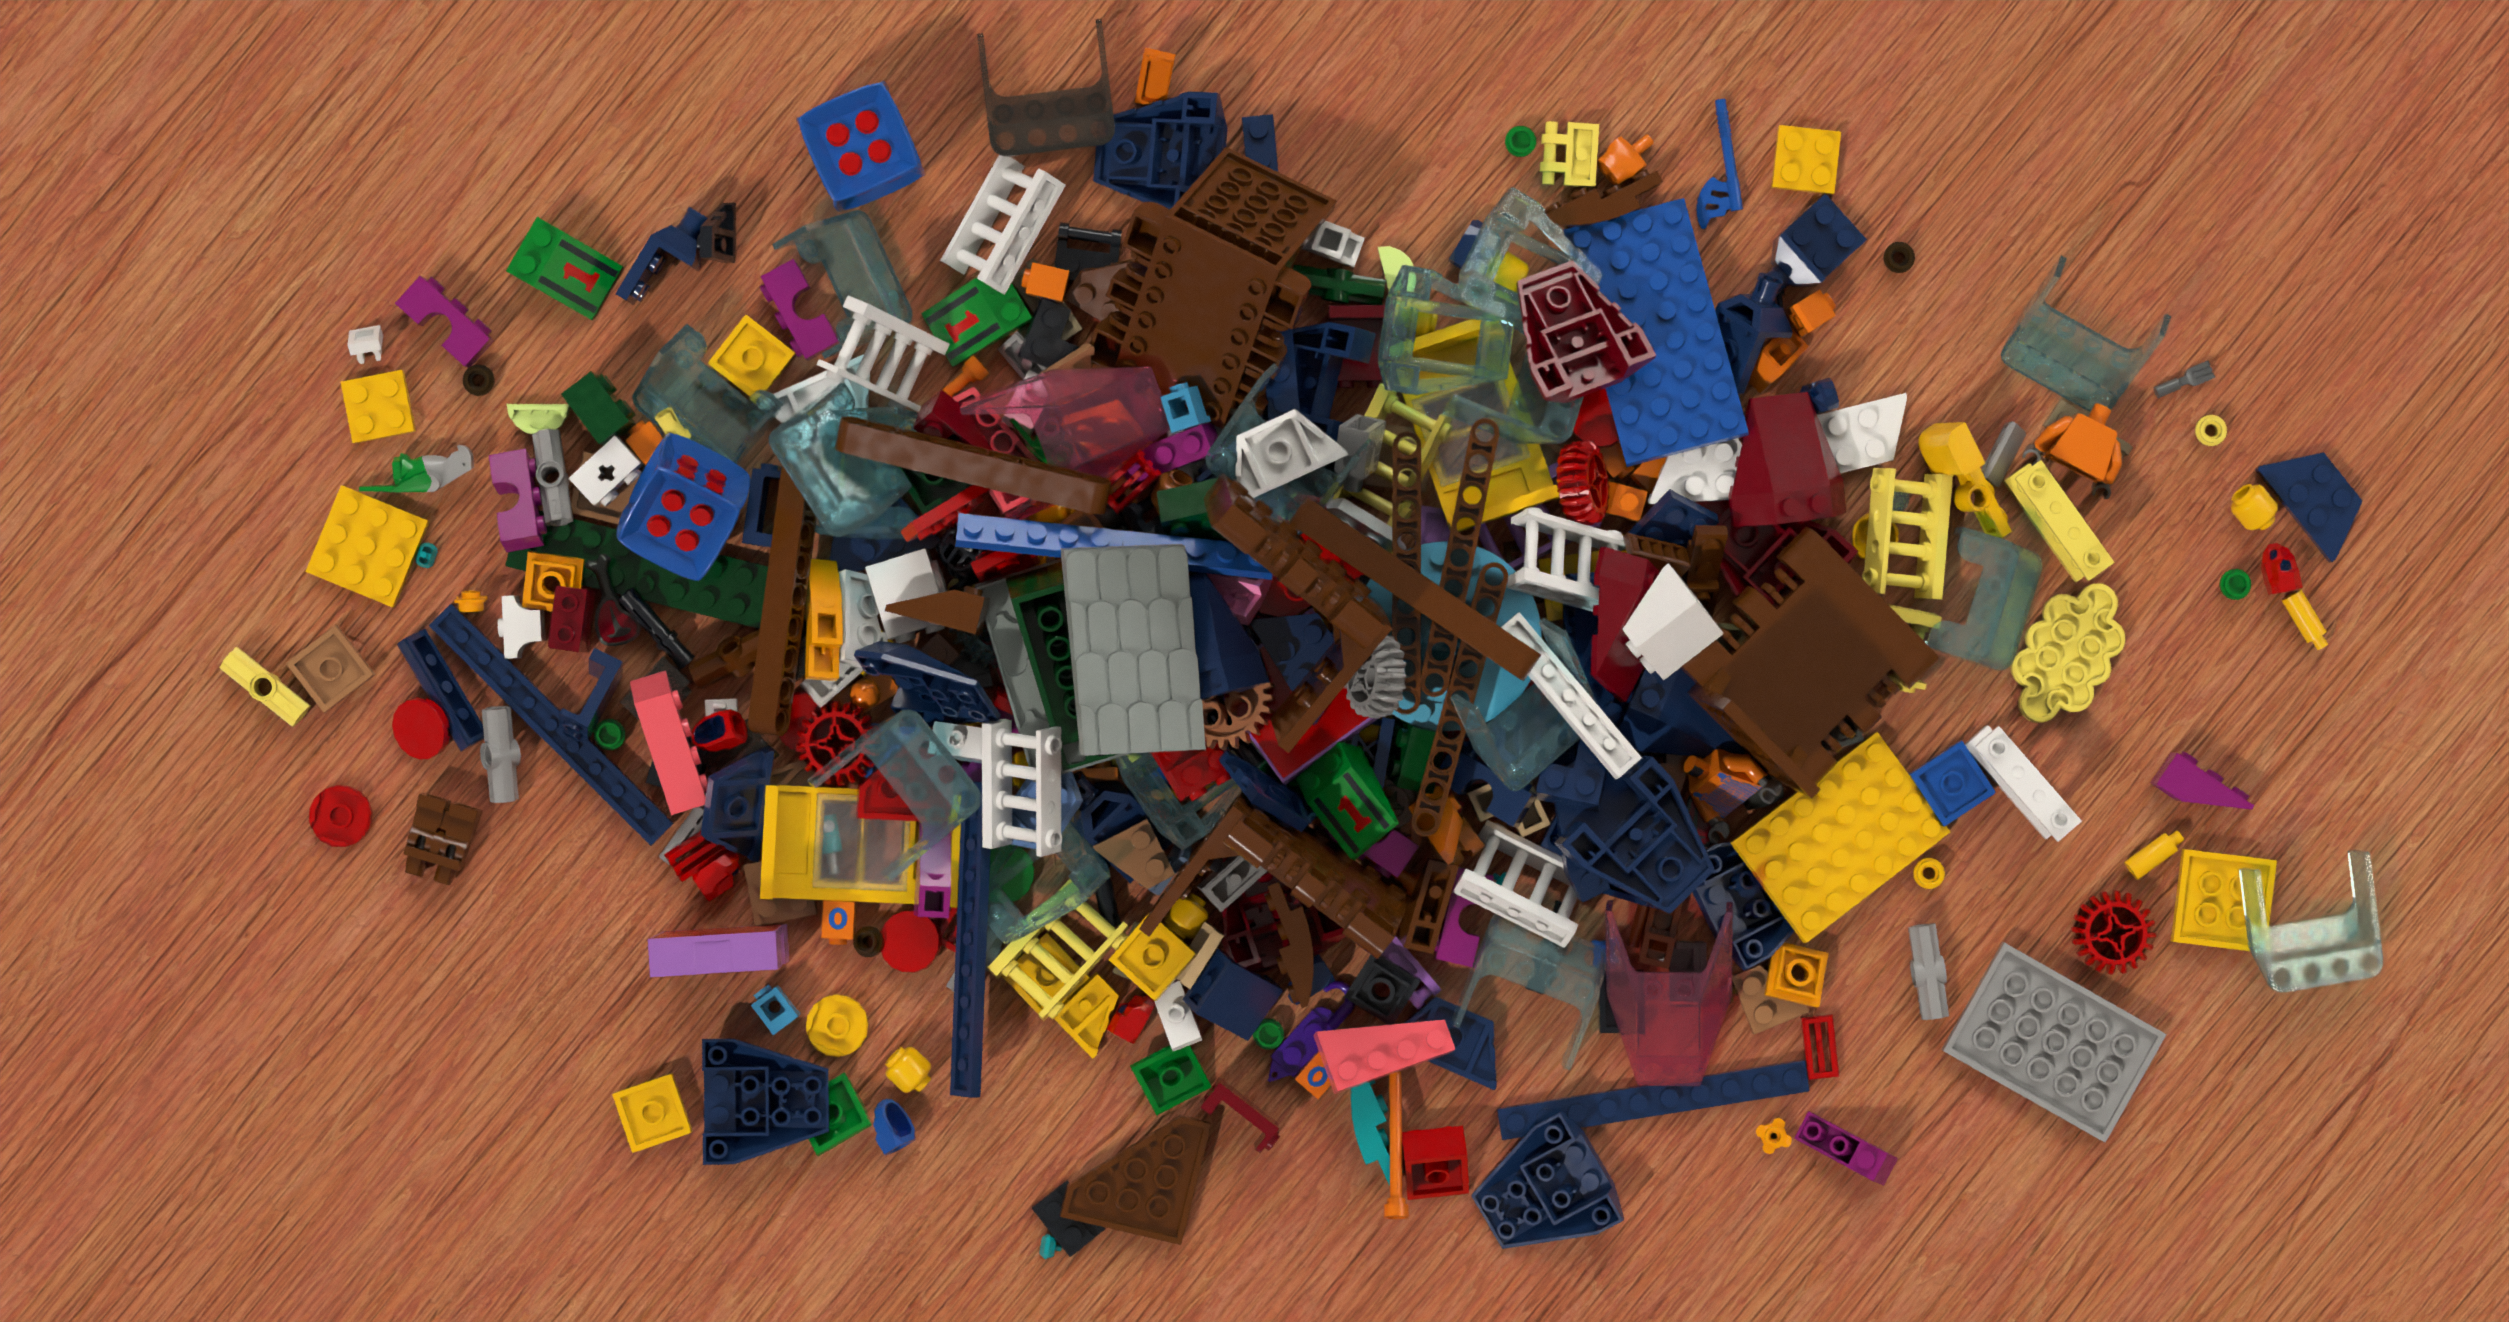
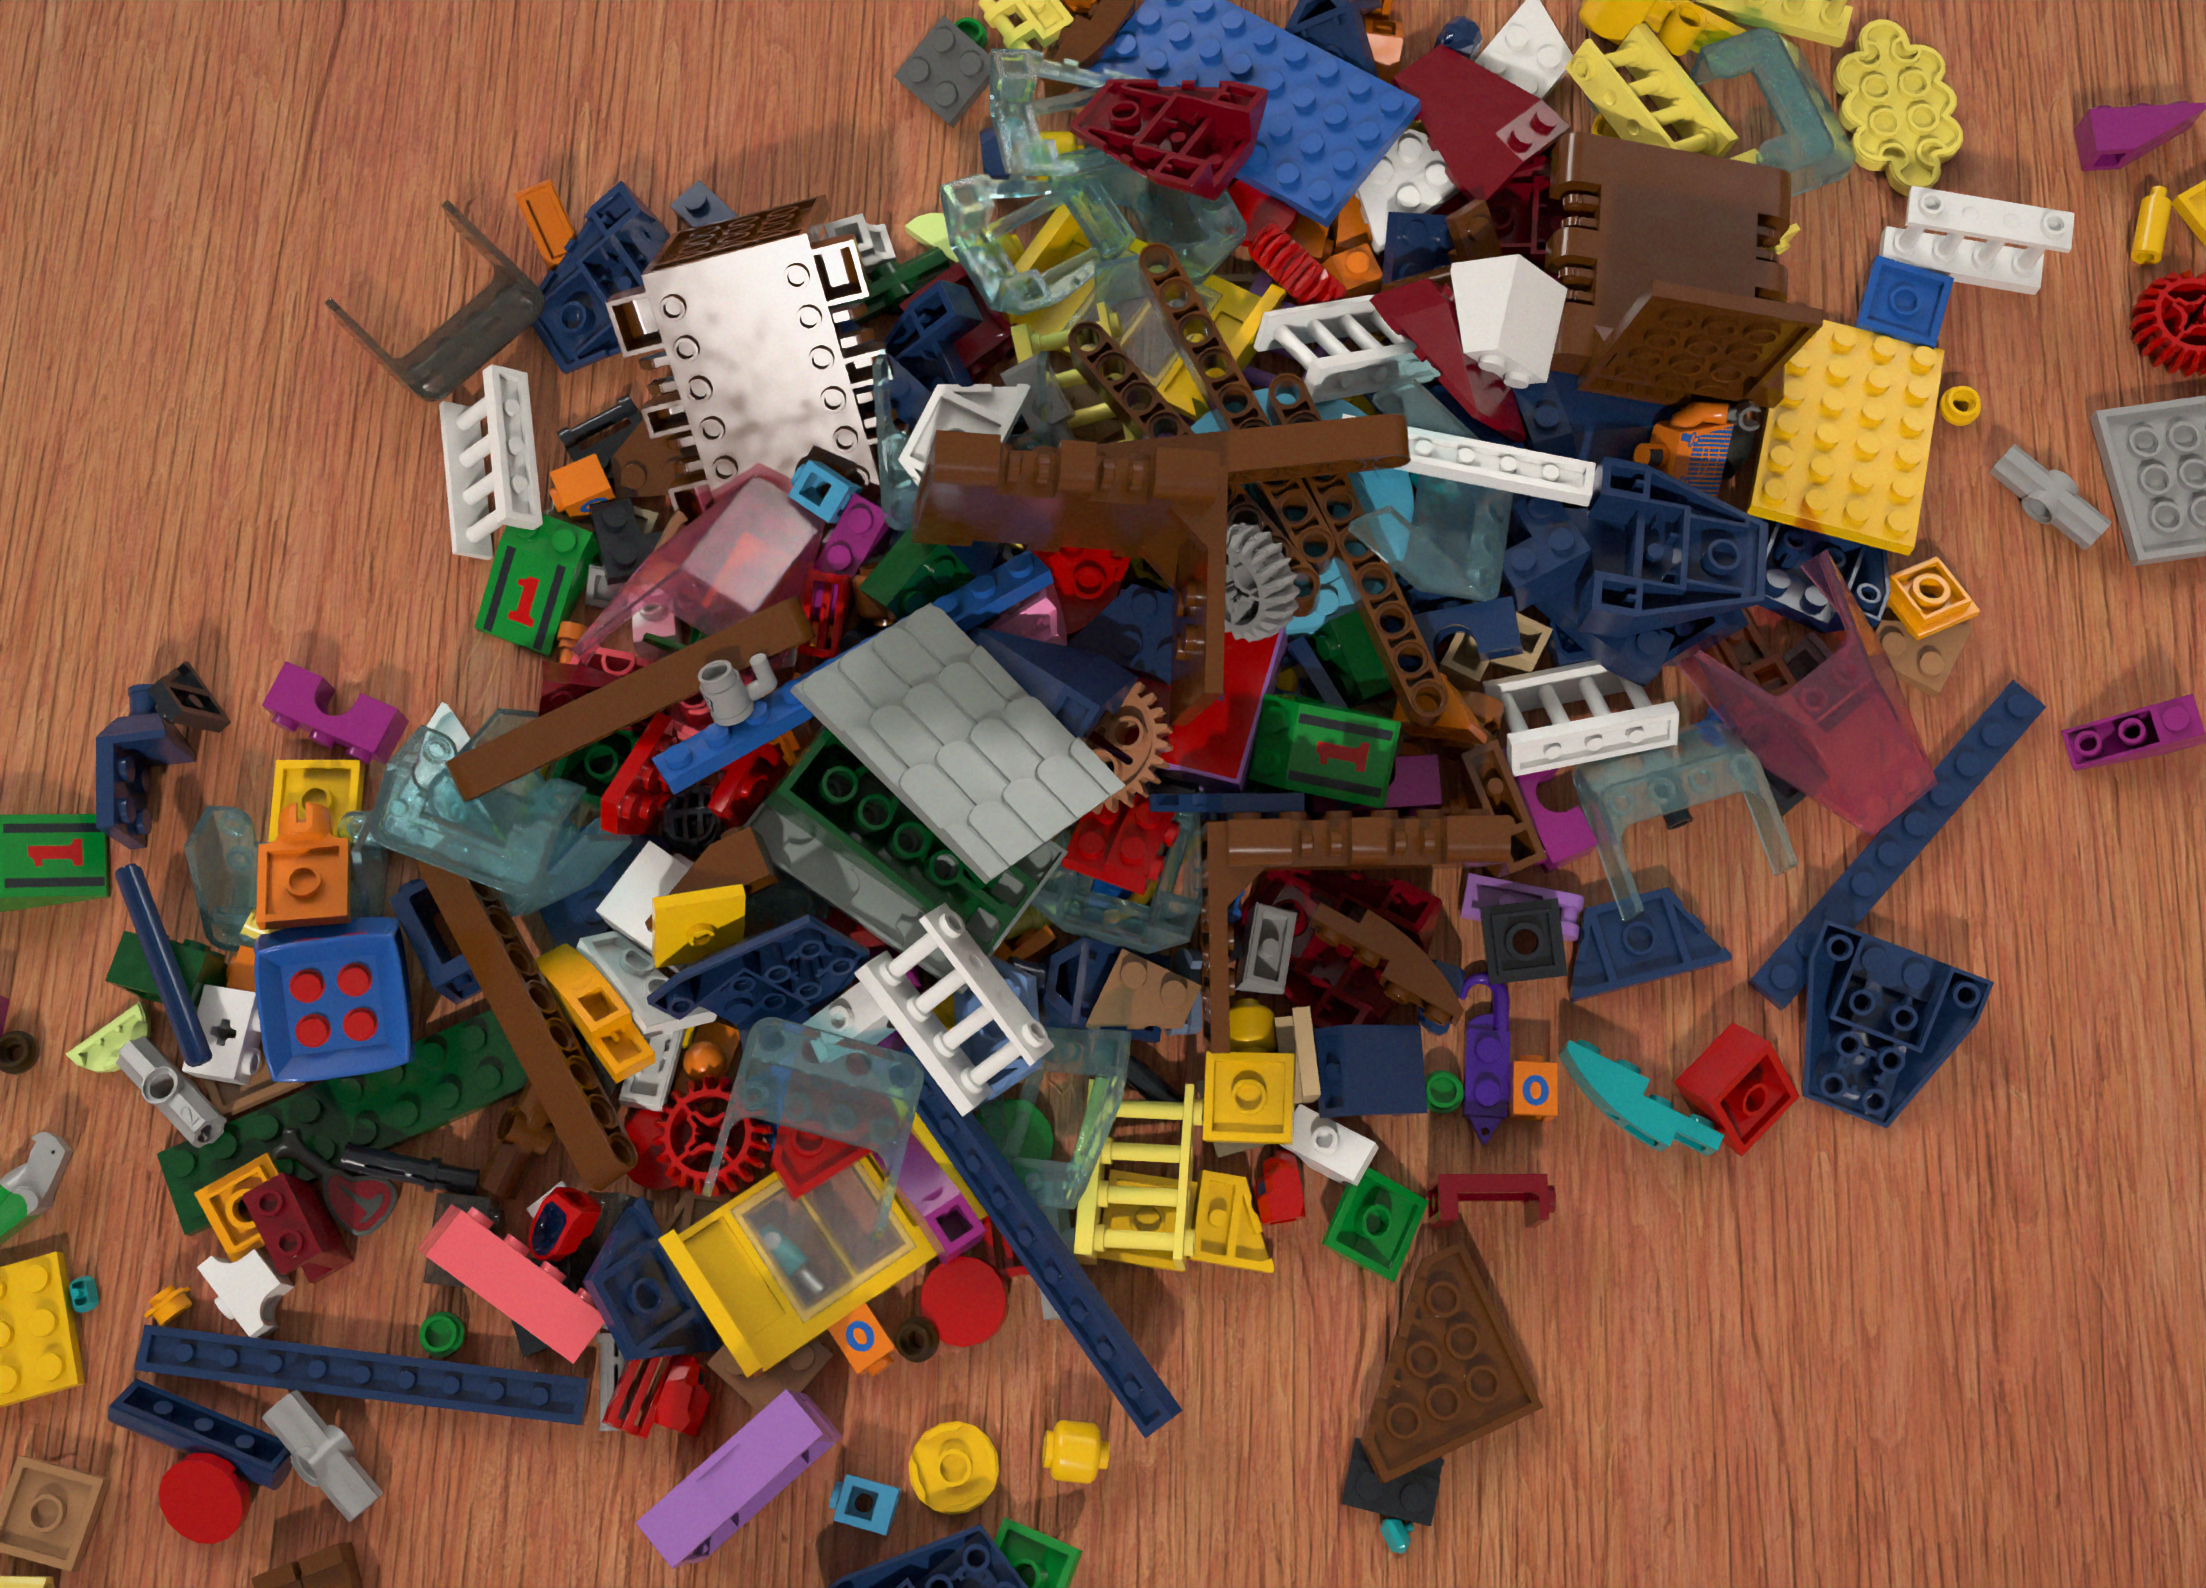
camera: 40 degrees left, 15 degrees down
(521, 525) = (164, 1165): magenta arch -> none
(600, 412) = (163, 965): none -> dark blue axle
(609, 672) = (391, 1273): dark blue panel -> none
(715, 411) = (304, 872): none -> orange plate
(855, 267) = (365, 629): clear light blue windscreen -> none
(860, 146) = (275, 489): blue piece -> none
(883, 326) = (428, 637): white fence -> none
(892, 1126) = (1108, 1535): blue rock -> none
(914, 629) = (696, 924): none -> yellow plate
(1028, 516) = (726, 693): none -> light grey piece
(1373, 1052) = (1573, 1011): coral wedge -> none
(1396, 1205) = (1744, 1162): orange piece -> none
(1486, 159) = (947, 71): none -> dark grey plate
(1765, 1132) = (2041, 785): light orange plate -> none
(1805, 1021) = (2007, 661): red tile -> none

